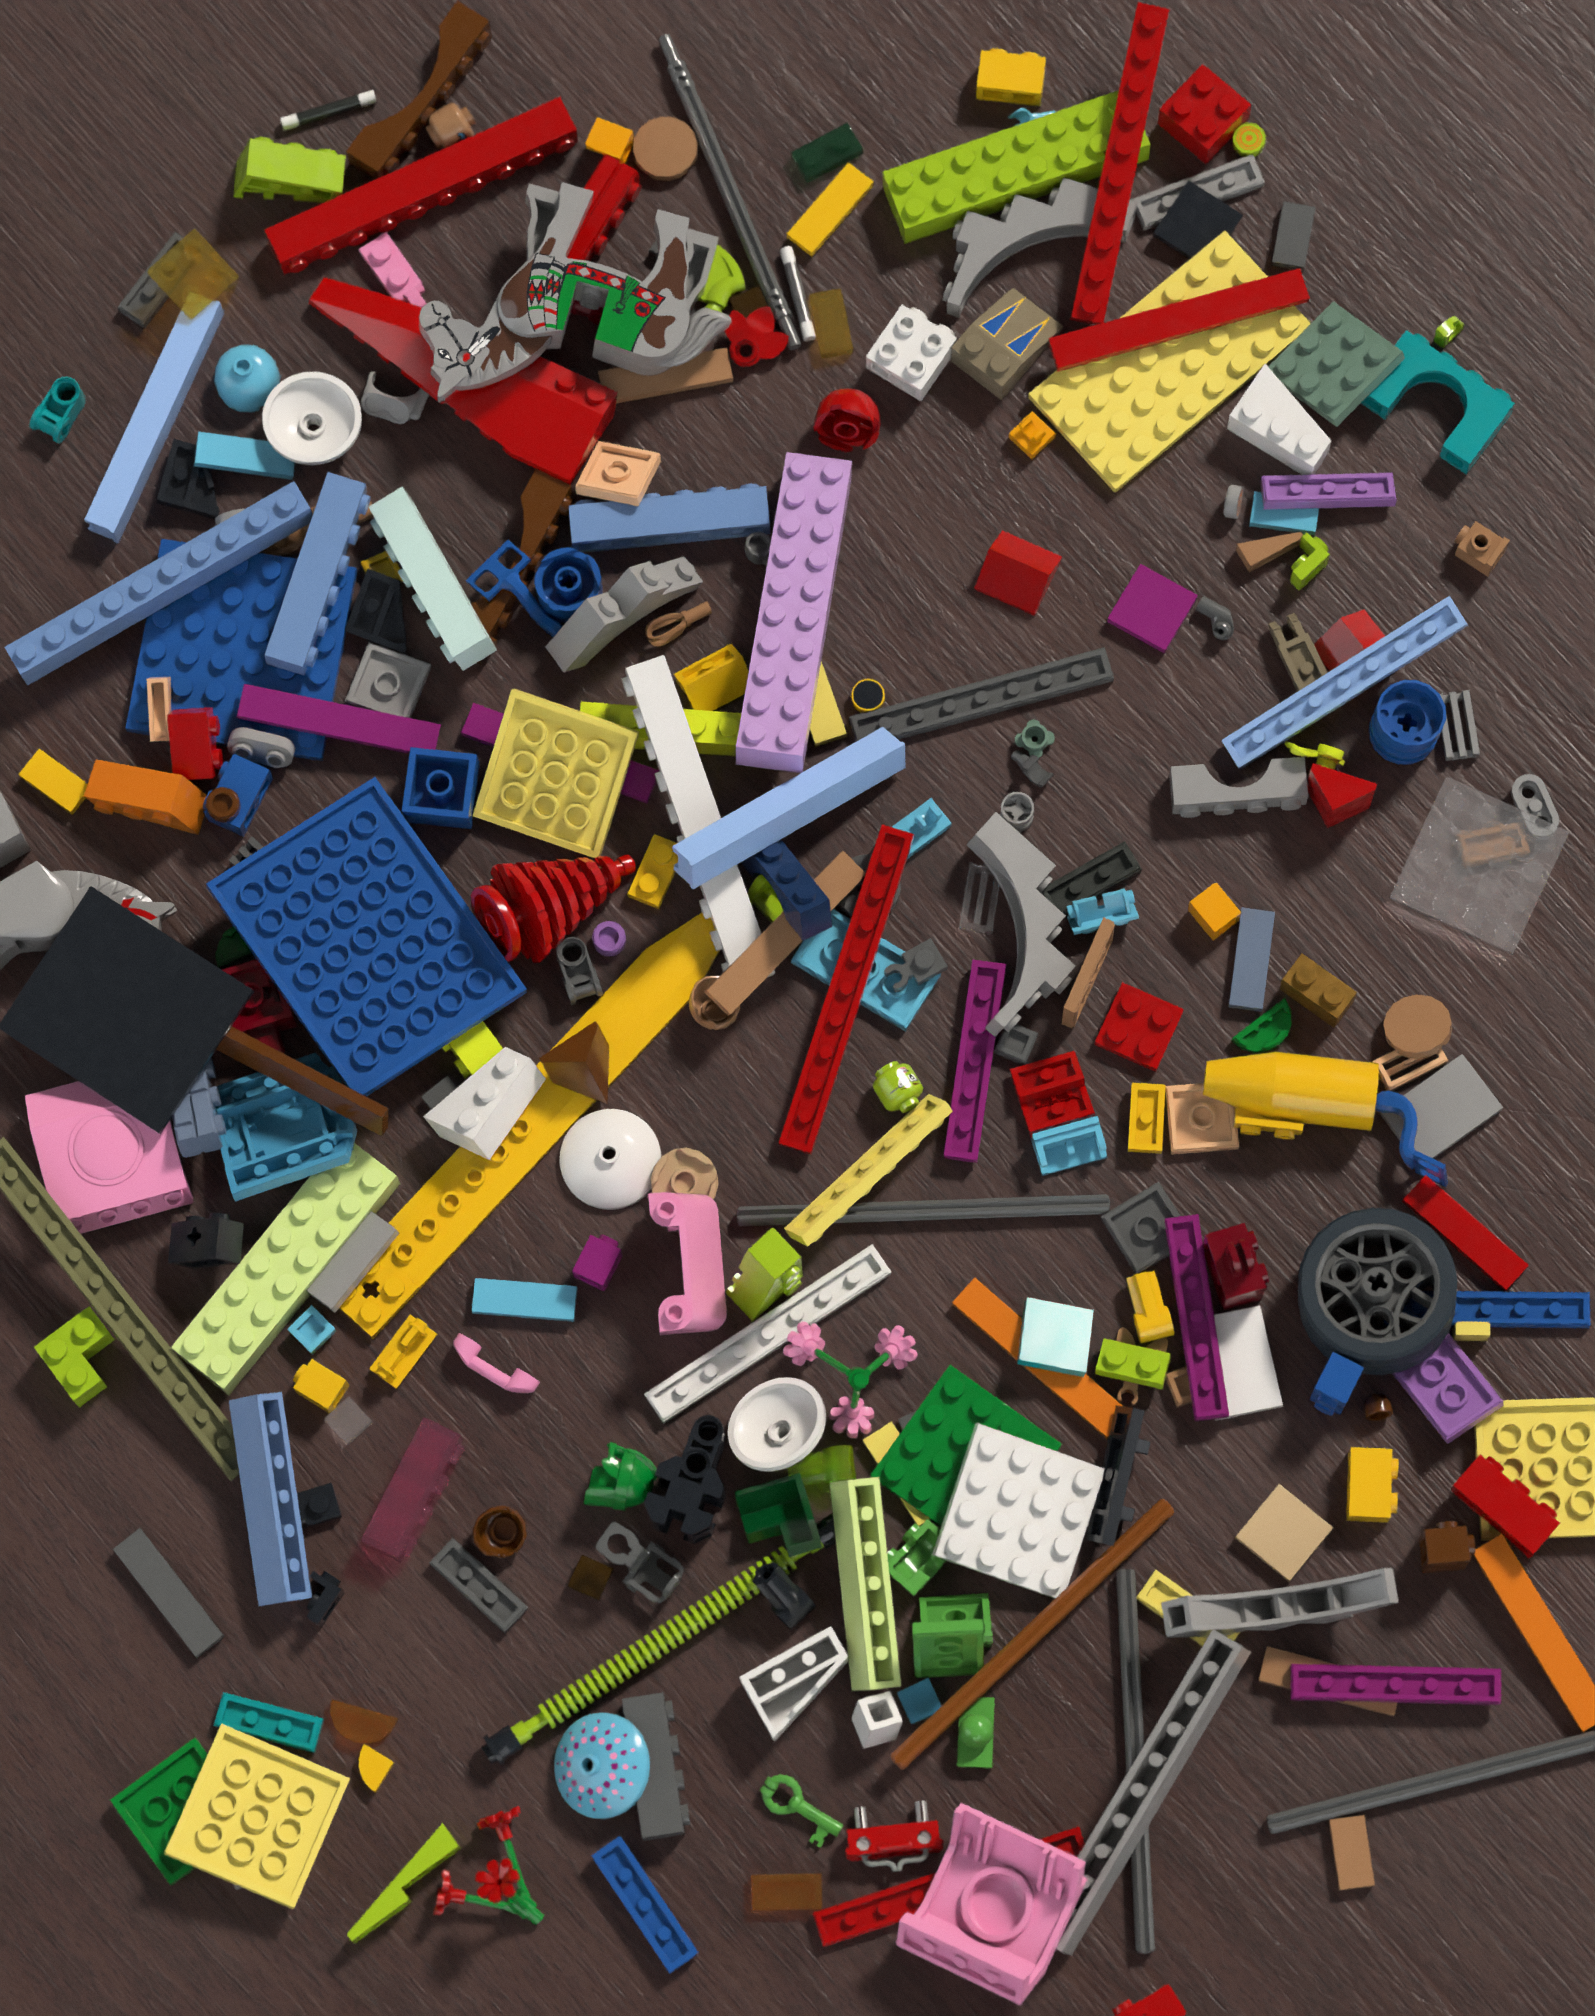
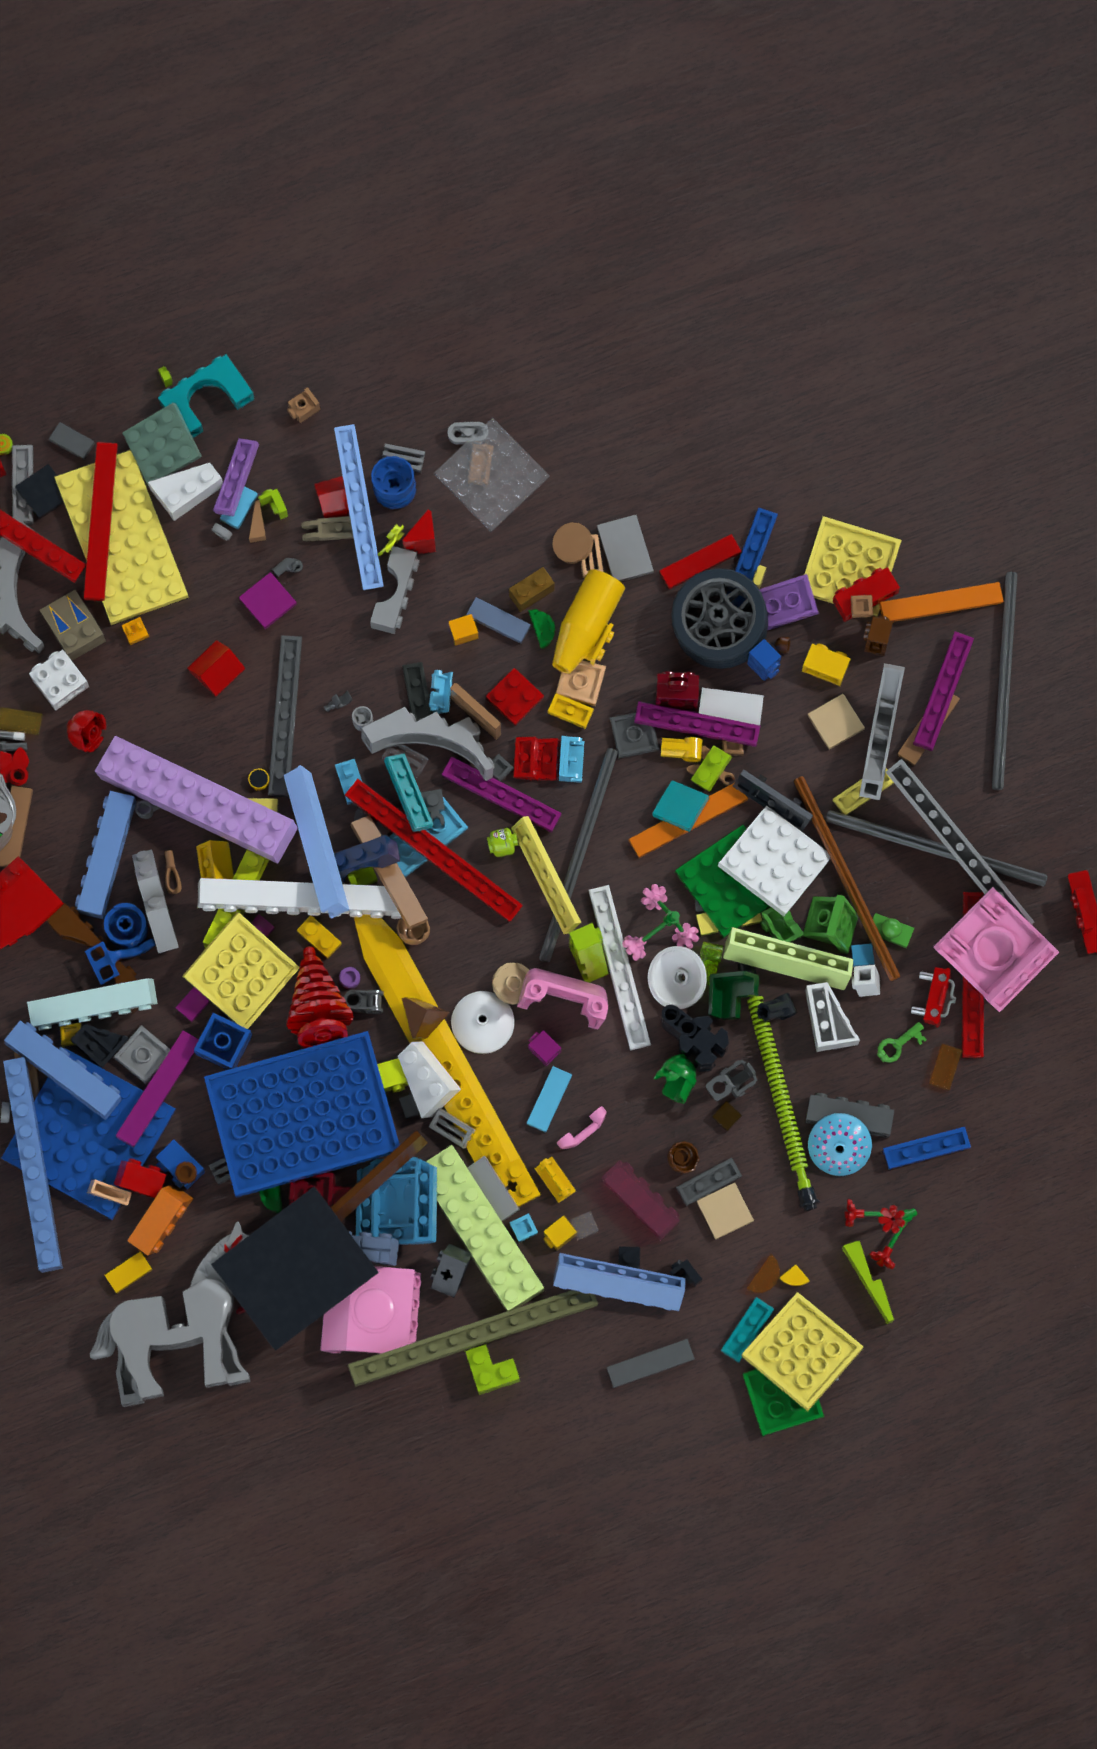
camera: 75 degrees left, 0 degrees up
(261, 747) = (156, 1141): light grey plate -> none
(433, 1169) = (466, 1136): none -> light grey tile
(441, 1625) = (725, 1211): none -> tan tile
(618, 473) = (67, 874): light nougat tile -> none
(922, 918) = (408, 792): none -> teal tile
(1035, 729) = (322, 688): sand green plate -> none
(1351, 1852) = (1028, 749): medium nougat tile -> none
(1398, 1104) = (617, 567): blue piece -> none
(1477, 1503) = (861, 606): none -> medium nougat tile

